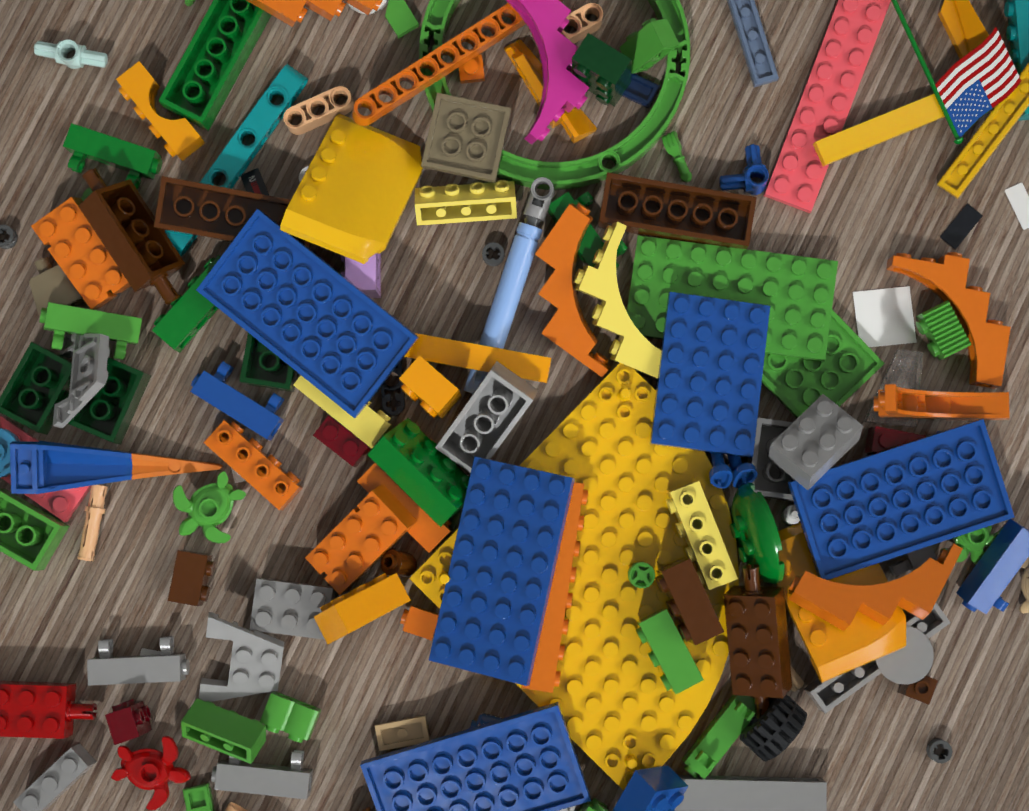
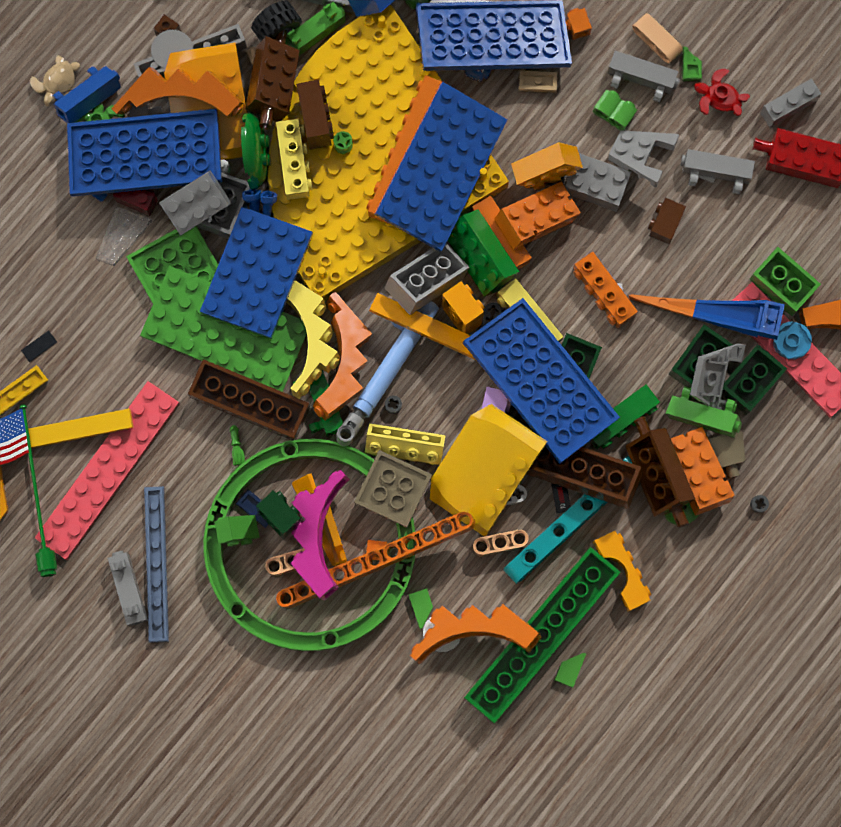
camera: 170 degrees left, 5 degrees down
(62, 48) = (692, 636): light aqua axle -> none
(92, 522) = (728, 283): light nougat pin -> none
(111, 151) = (664, 547): green brick -> none
(128, 721) = (729, 129): dark red brick -> none
(207, 508) = (644, 266): bright green animal -> none
(223, 730) = (663, 109): bright green brick -> none
(237, 405) = (608, 336): blue brick -> none
(341, 441) = (537, 290): dark red brick -> none
(398, 562) = (513, 194): reddish brown brick -> none
(419, 622) = (507, 151): orange brick -> none
(668, 651) = (337, 86): bright green brick -> none
(754, 169) = (193, 414): blue axle -> none
(885, 316) = (115, 293): white sticker -> none
(941, 405) = (102, 215): orange arch -> none
(942, 330) = (76, 270): bright green brick -> none
(948, 281) = (47, 256): orange arch -> none

